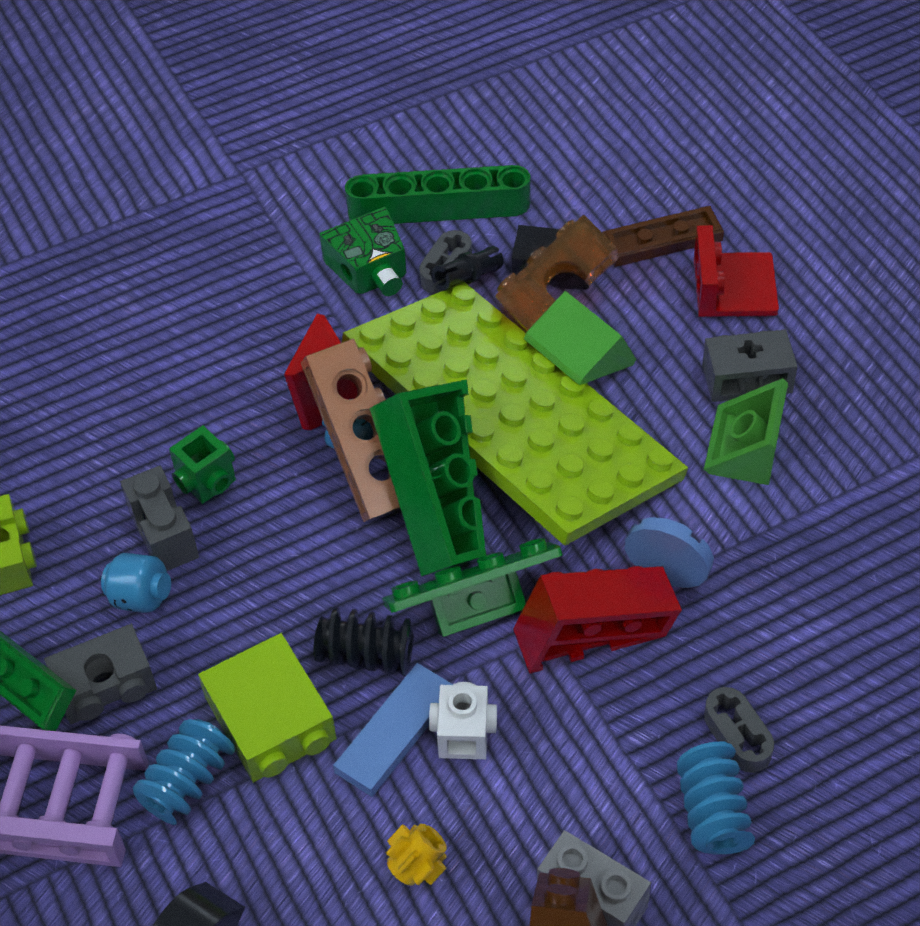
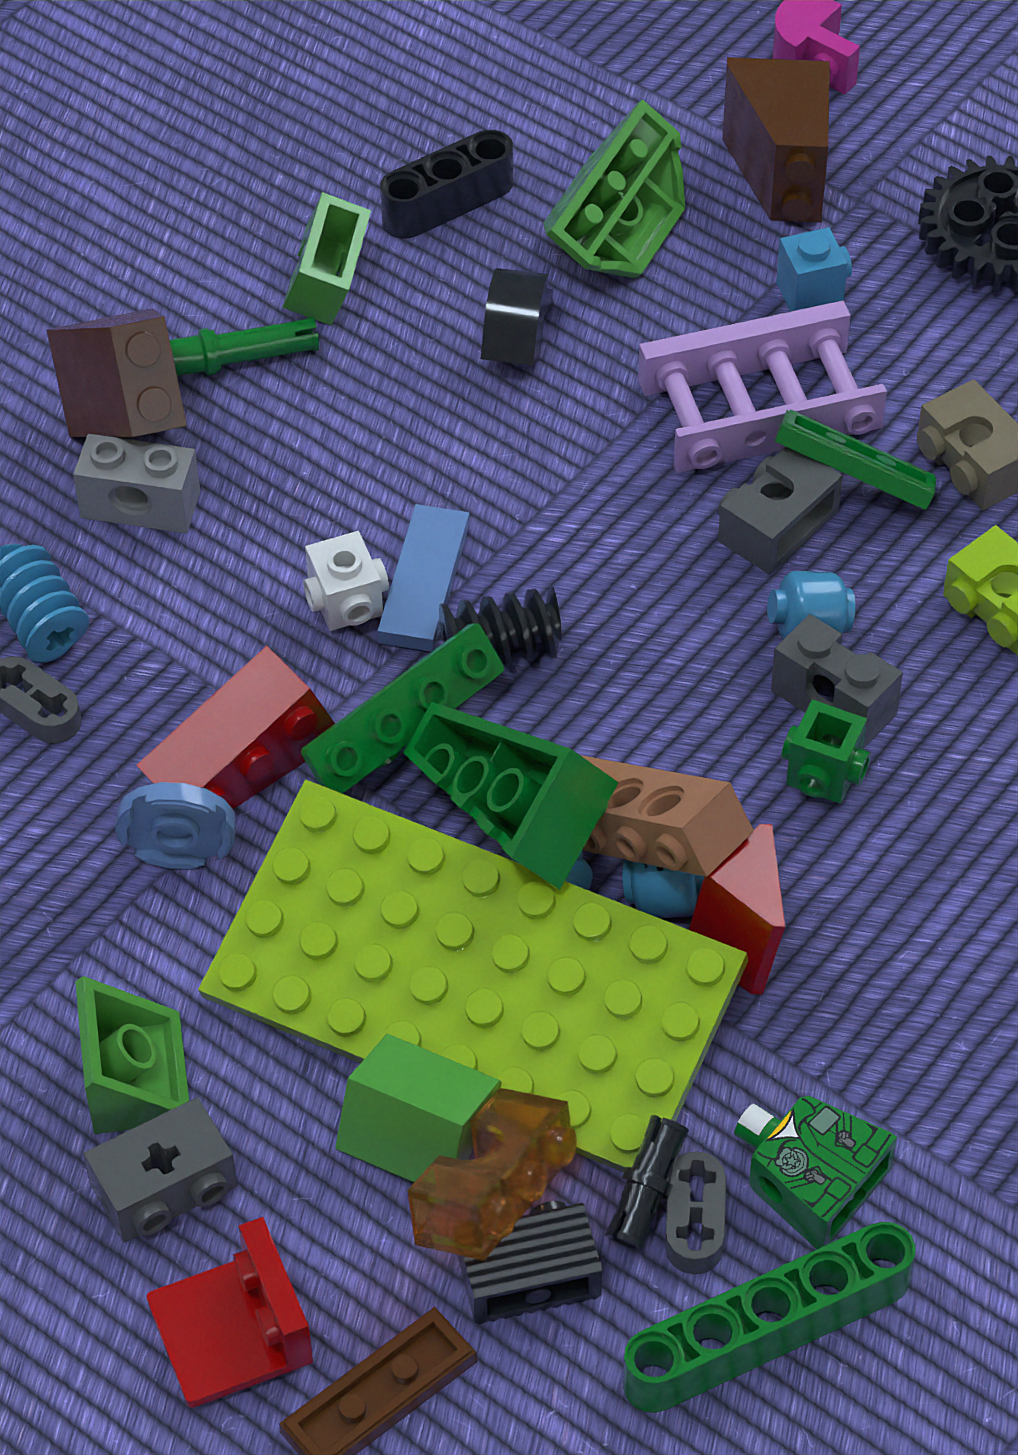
camera: 155 degrees right, 0 degrees up
(181, 767) = (620, 450): dark azure piece -> none
(268, 707) = (573, 536): lime brick -> none
(416, 854) = (333, 454): yellow gear -> none

